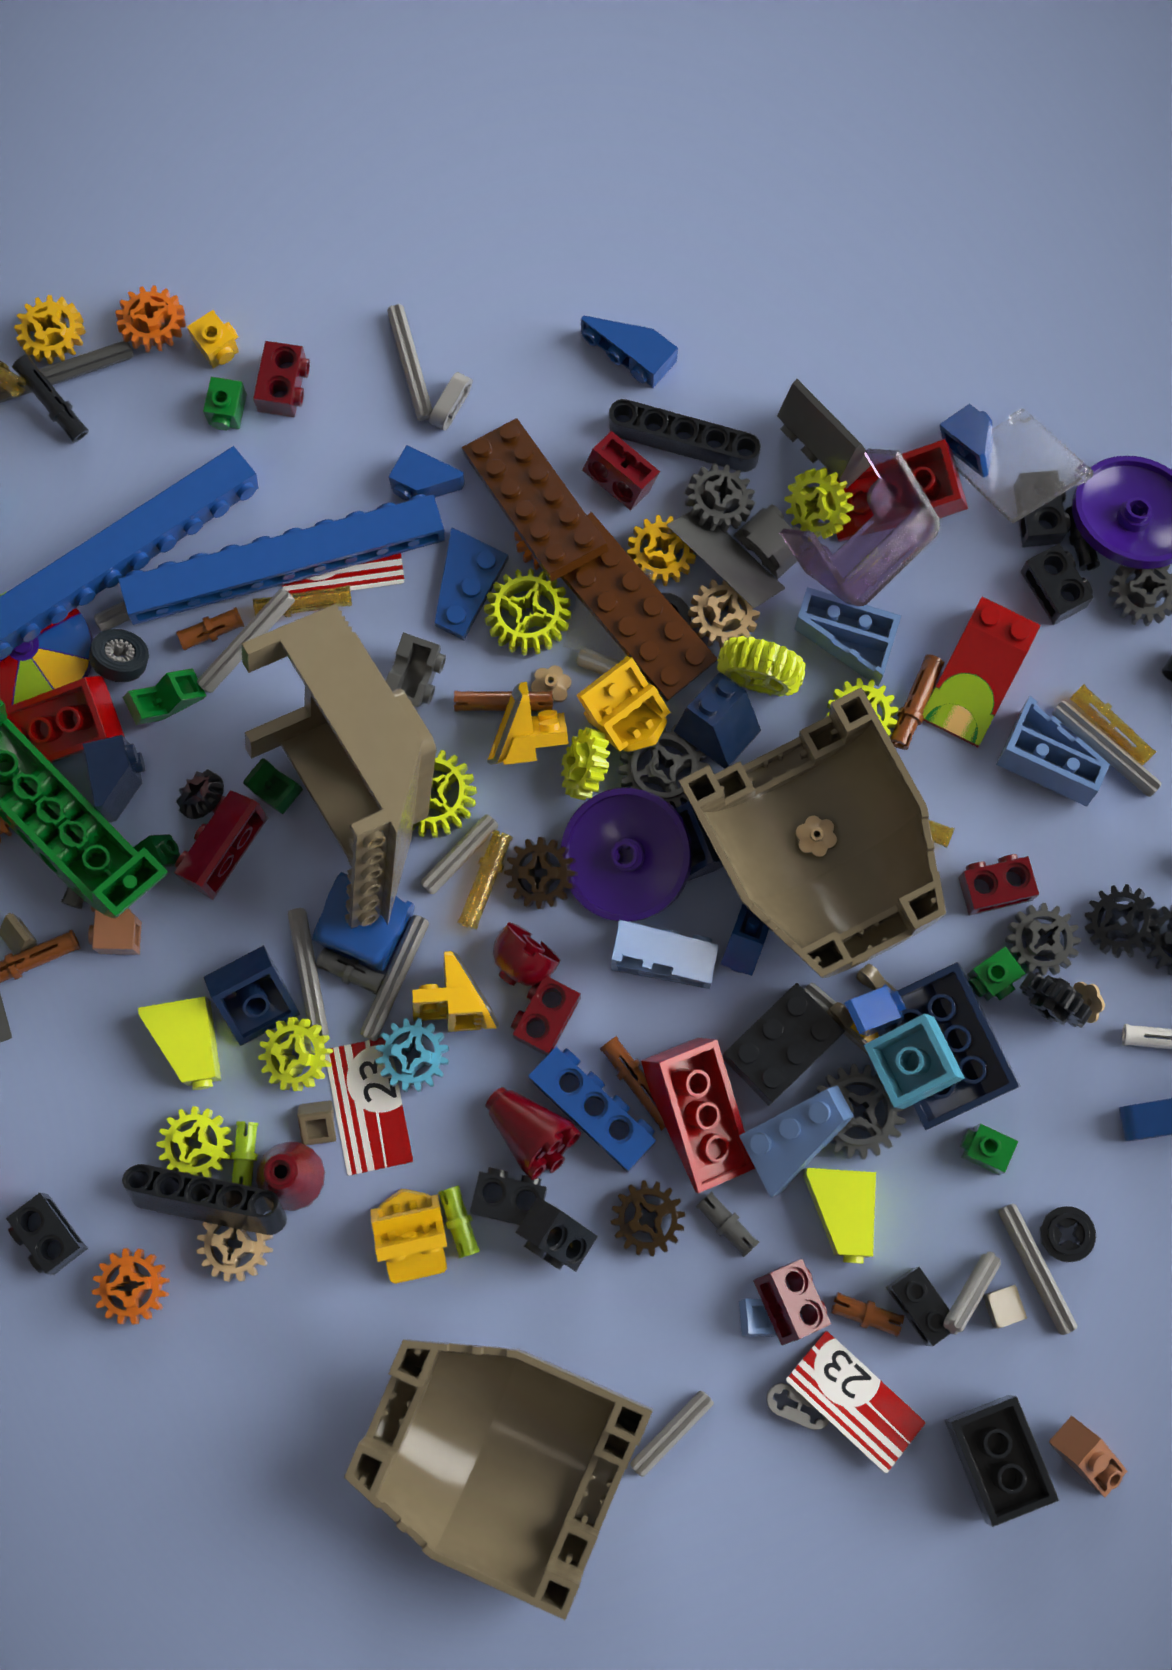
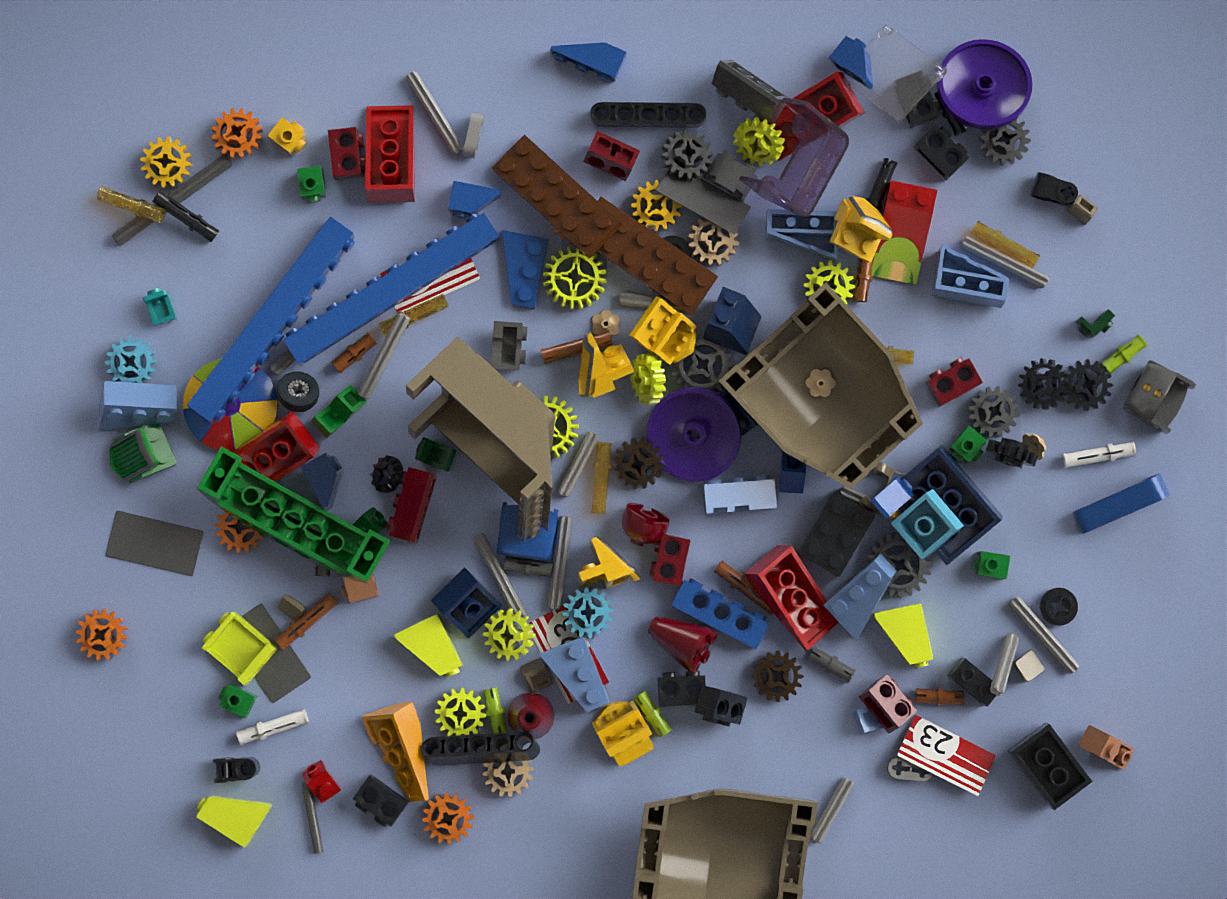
camera: 15 degrees left, 10 degrees up
(101, 1152) = (400, 739): none -> light orange wedge
(335, 397) = (390, 154): none -> red slope
(373, 1134) = (578, 673): none -> medium blue wedge
(761, 666) = (750, 274): neon yellow gear -> none
(923, 645) = (859, 228): none -> yellow piece
(949, 624) = (881, 183): none -> black pin

